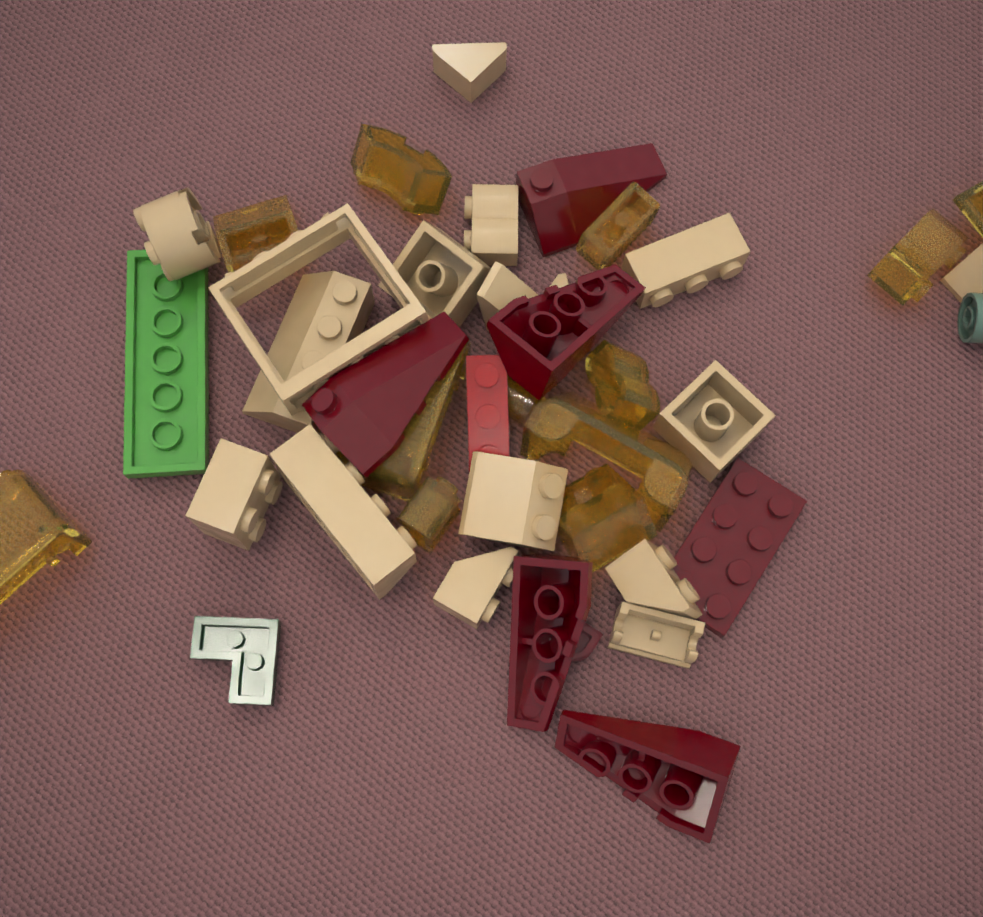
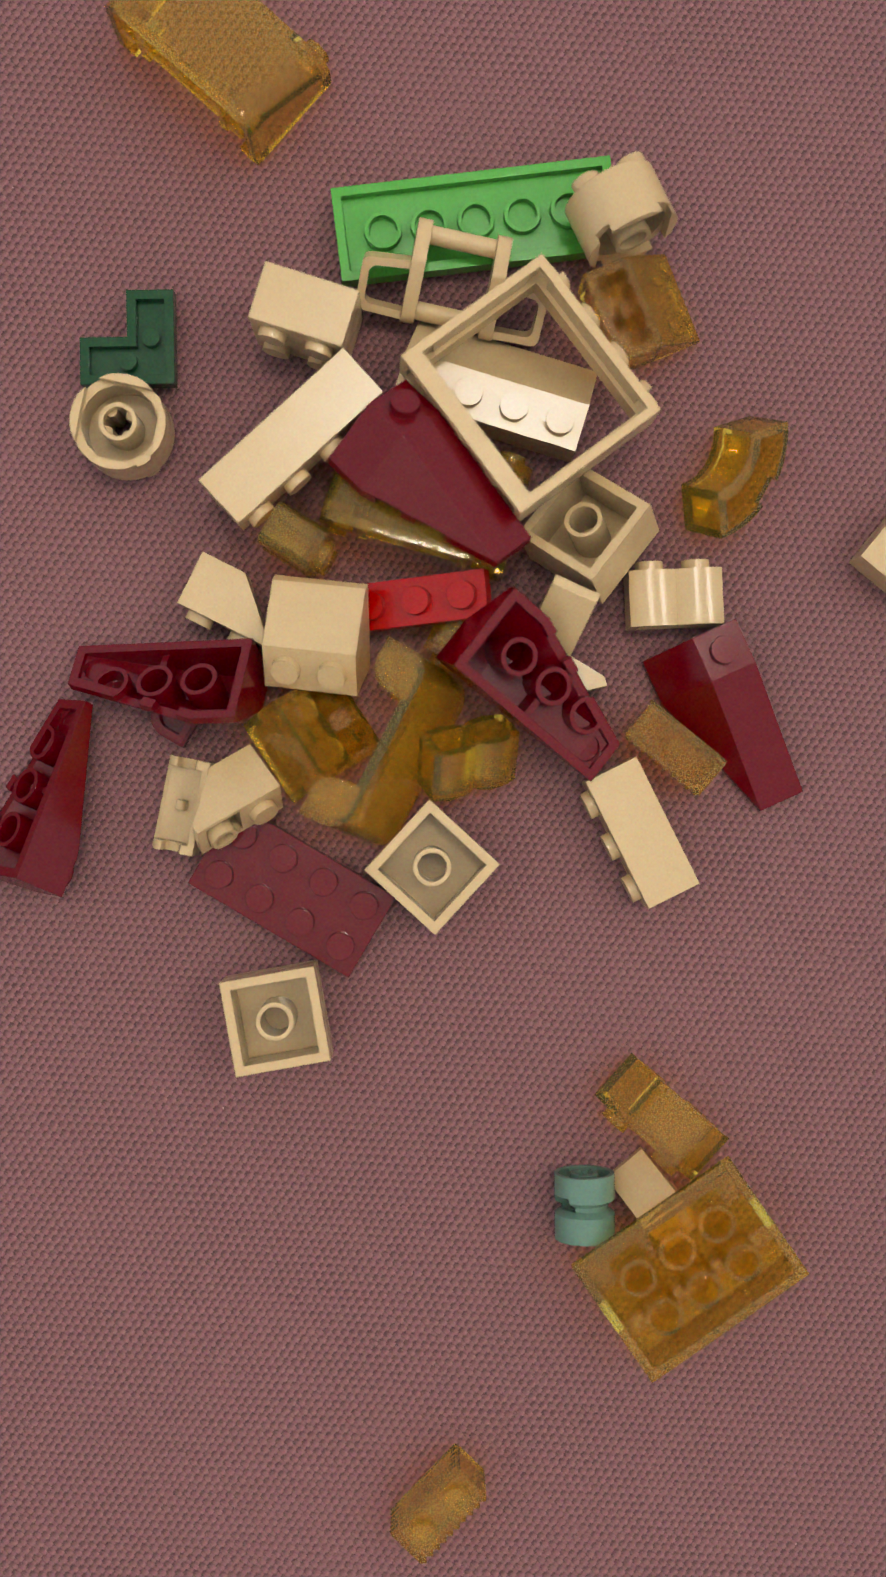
camera: 90 degrees right, 15 degrees up
(202, 401) = (412, 309): none -> tan bar
(303, 644) = (108, 405): none -> tan brick
(846, 558) = (276, 1018): none -> tan brick

